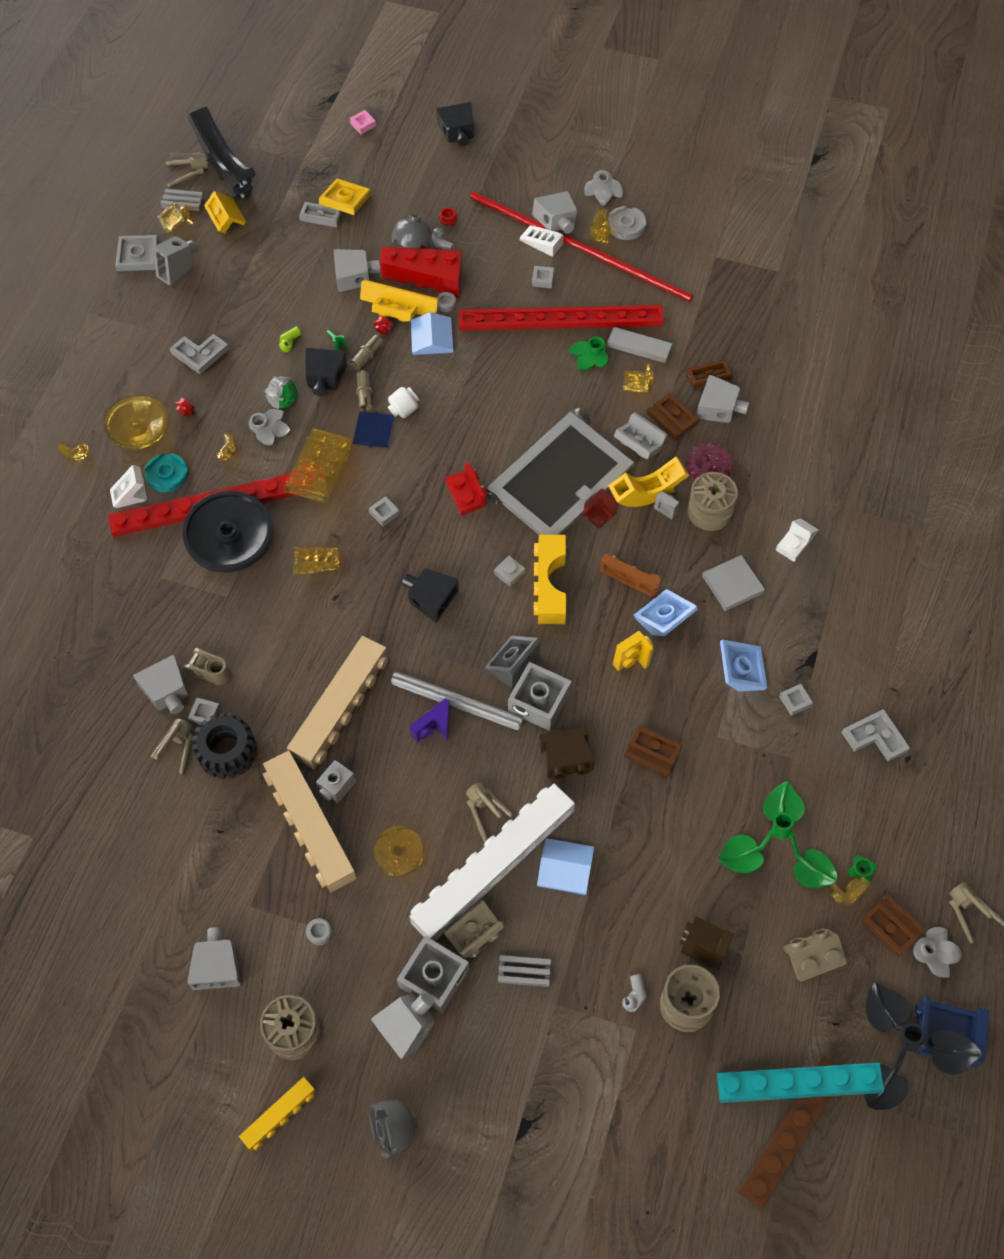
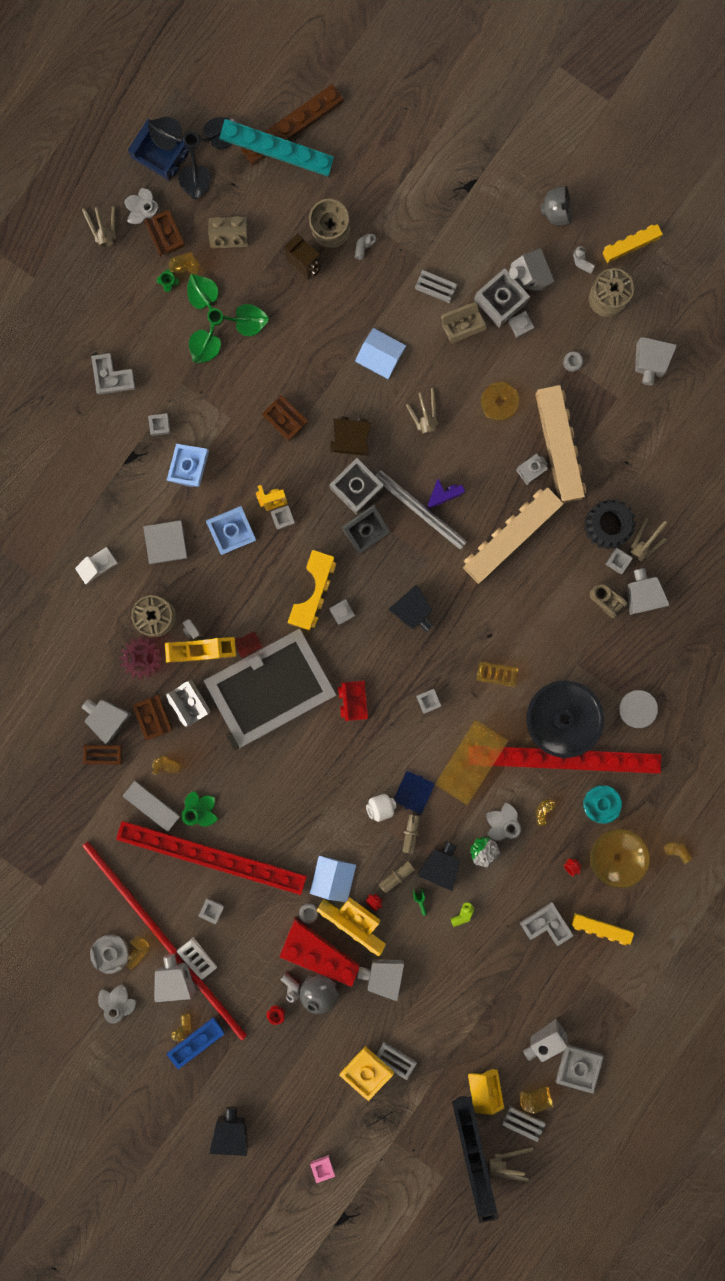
camera: 170 degrees left, 25 degrees up
(129, 488) = (638, 793): white slope -> none
(140, 365) = (602, 929): none -> yellow piece
(146, 570) = (638, 709): none -> light grey tile
(342, 1067) = (580, 260): none -> light grey arm
(397, 956) = (521, 324): none -> light grey plate
(492, 863) = (433, 369): white brick -> none
(516, 178) = (195, 1043): none -> blue plate
(531, 184) = (185, 1028): none -> clear yellow arm
(609, 642) = (282, 517): none -> light grey plate
(630, 575) = (245, 573): dark orange plate -> none

